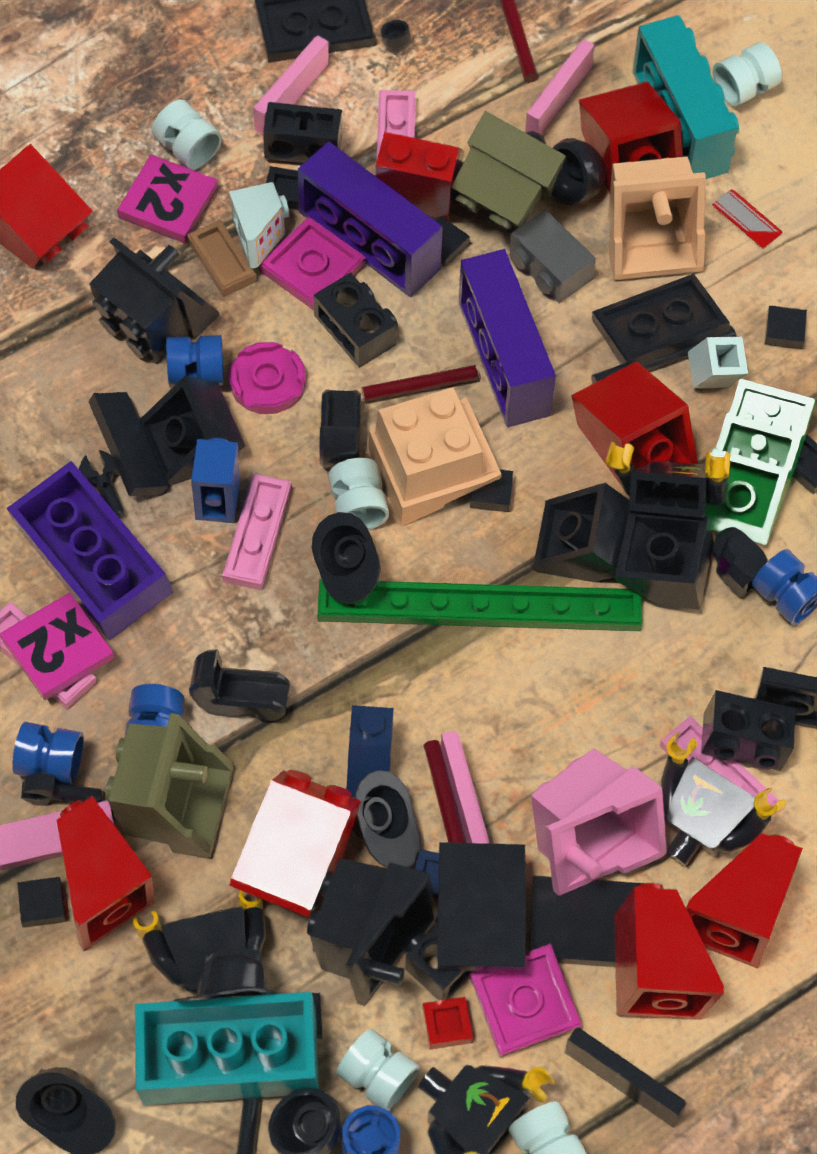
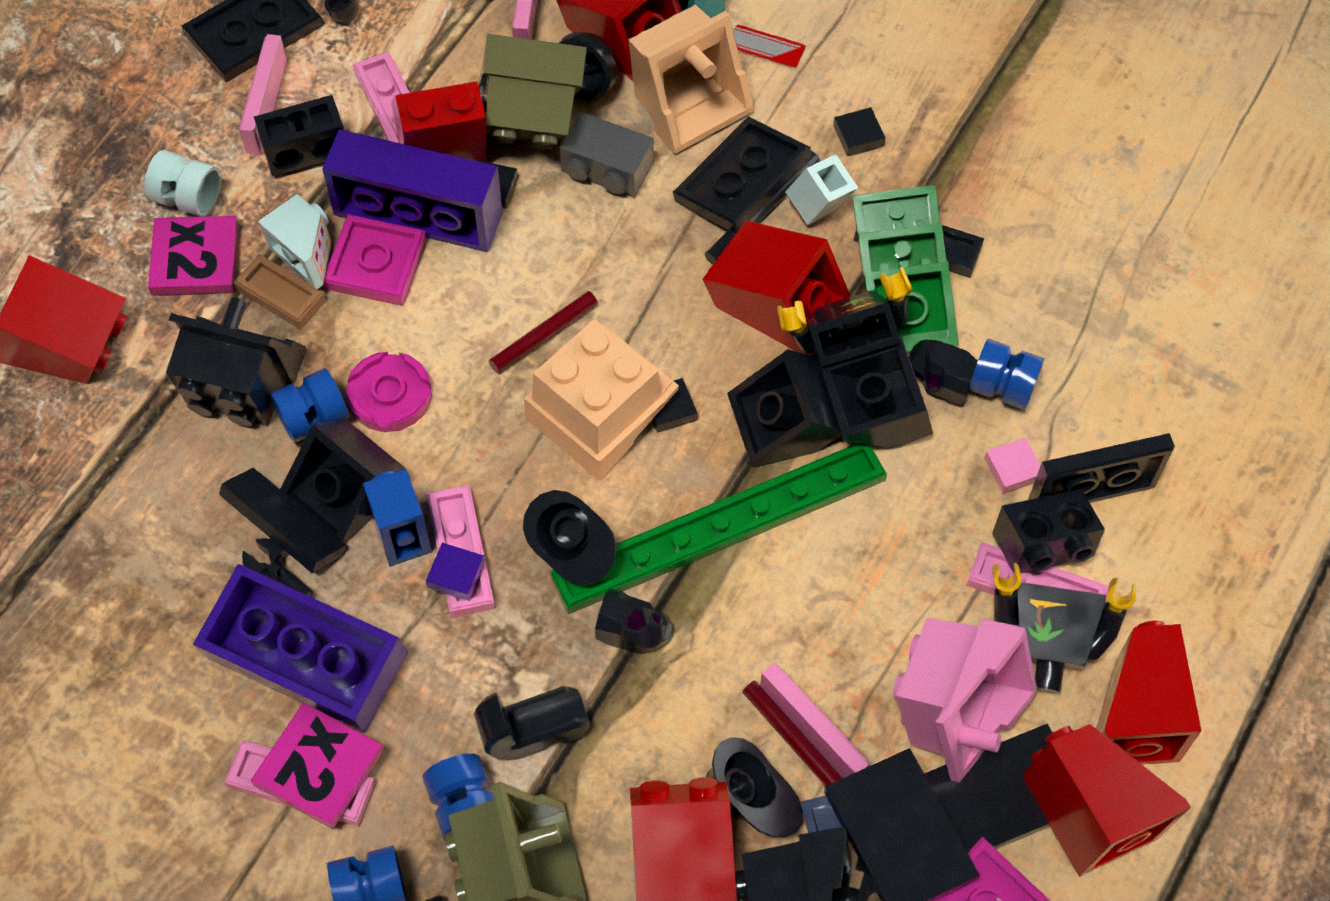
camera: 25 degrees left, 0 degrees up
(241, 544) = (455, 571): none -> dark purple tile
(285, 184) = (311, 189): black tile -> none
(339, 427) = (495, 416): black animal -> none
(348, 323) = (443, 303): black brick -> none
(358, 491) = (541, 462): light aqua wheel -> none
(361, 649) = (631, 624): none -> black rock
(368, 743) = (693, 720): dark blue slope -> none
(506, 338) = (610, 250): dark purple brick -> none
(750, 663) = (1013, 465): none -> bright pink tile

